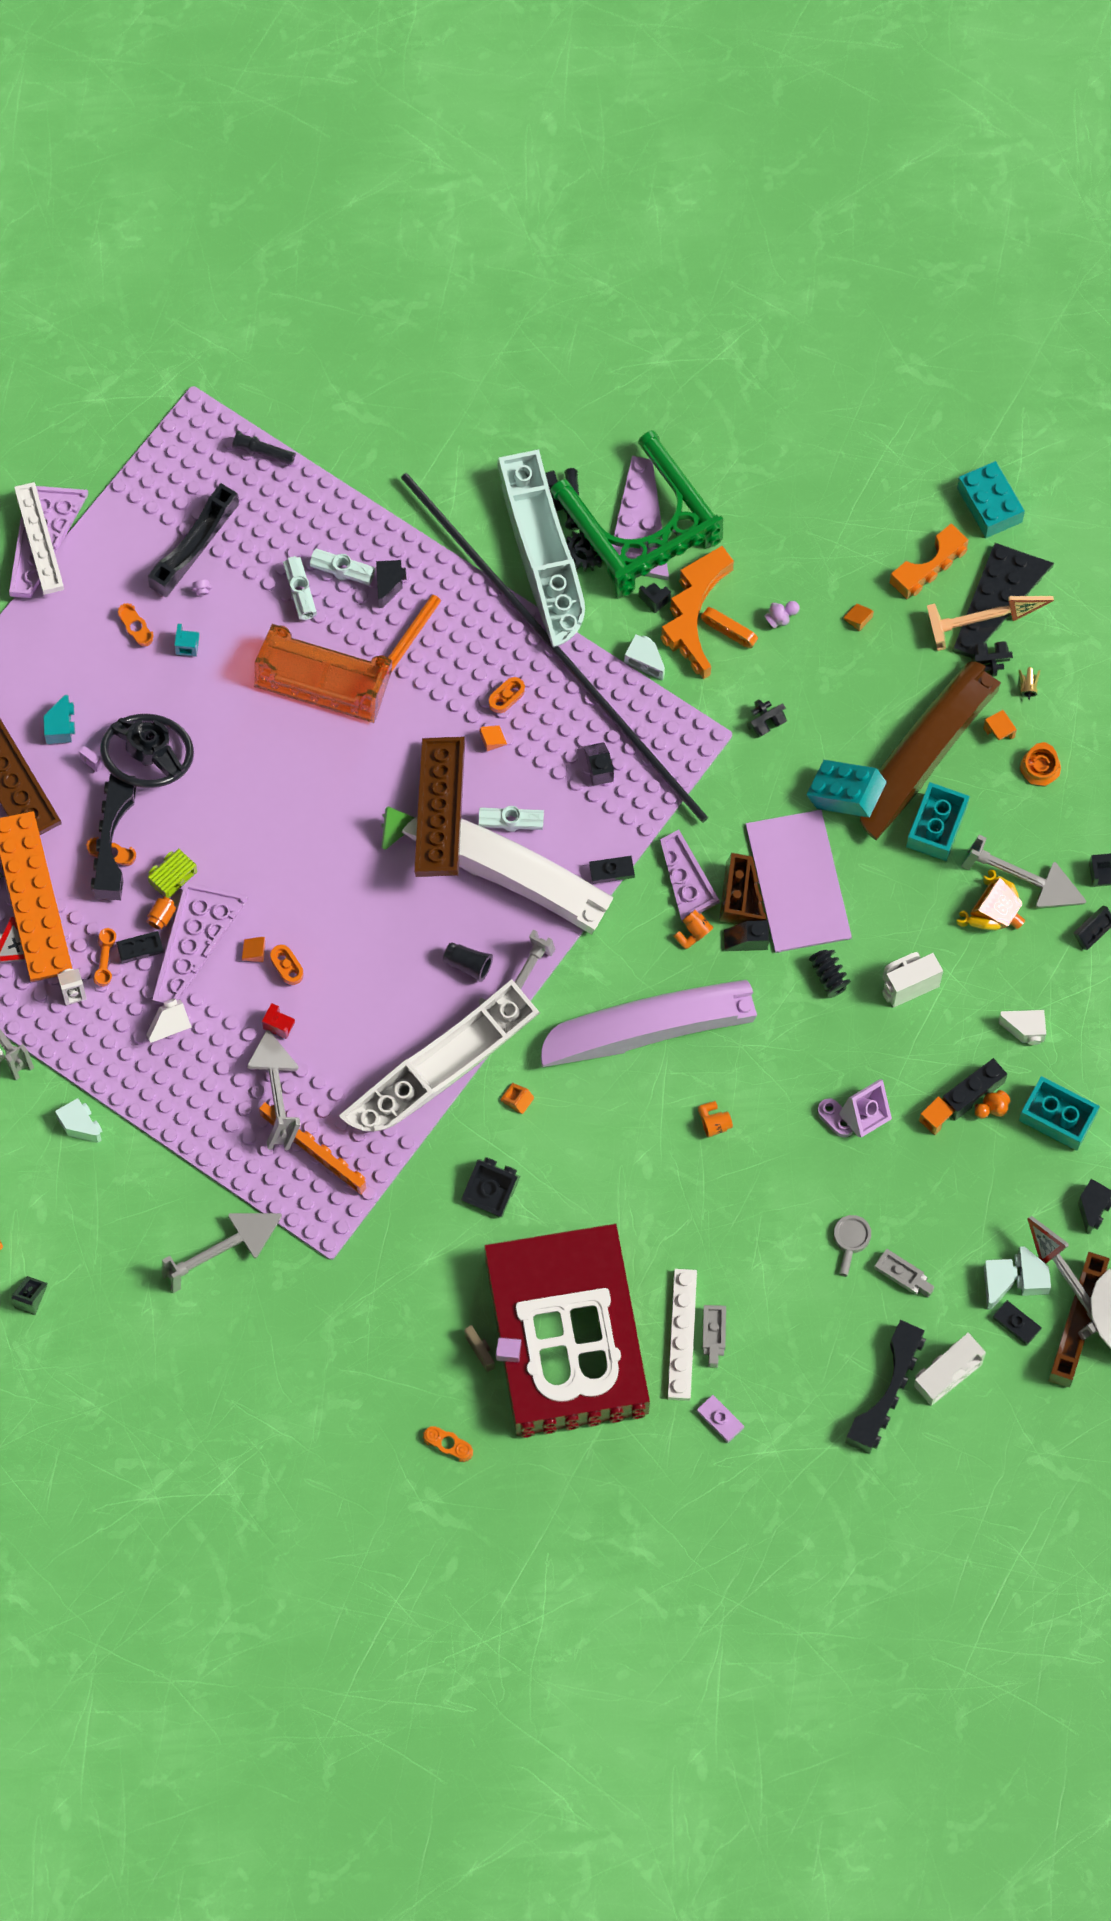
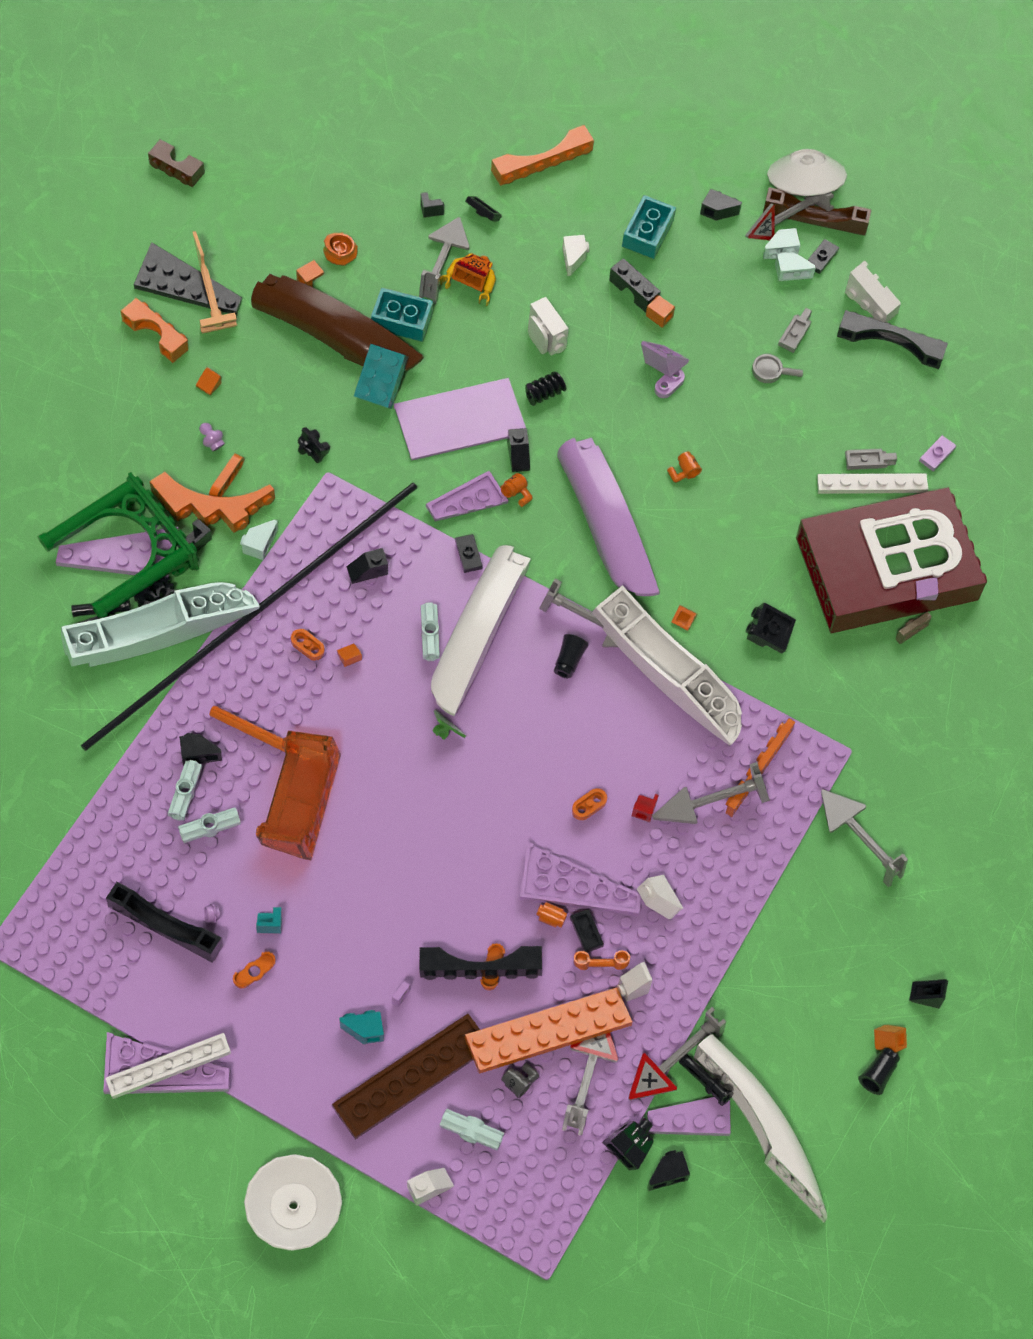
camera: 100 degrees left, 5 degrees down
(77, 1123) = (761, 969): light aqua slope -> none
(148, 743) = (380, 947): black piece -> none
(172, 873) = (511, 909): lime brick -> none
(254, 445) = (55, 880): black pin -> none
(254, 949) = (576, 833): orange slope -> none
(440, 807) = (431, 681): reddish brown plate -> none
(461, 1448) = (994, 657): orange piece -> none
(740, 891) = (480, 454): reddish brown wedge -> none
(990, 499) = (93, 286): teal brick -> none
(993, 1103) = (646, 268): orange animal -> none
(1001, 655) = (246, 284): black hips -> none
(1029, 685) = (268, 257): pearl gold piece -> none

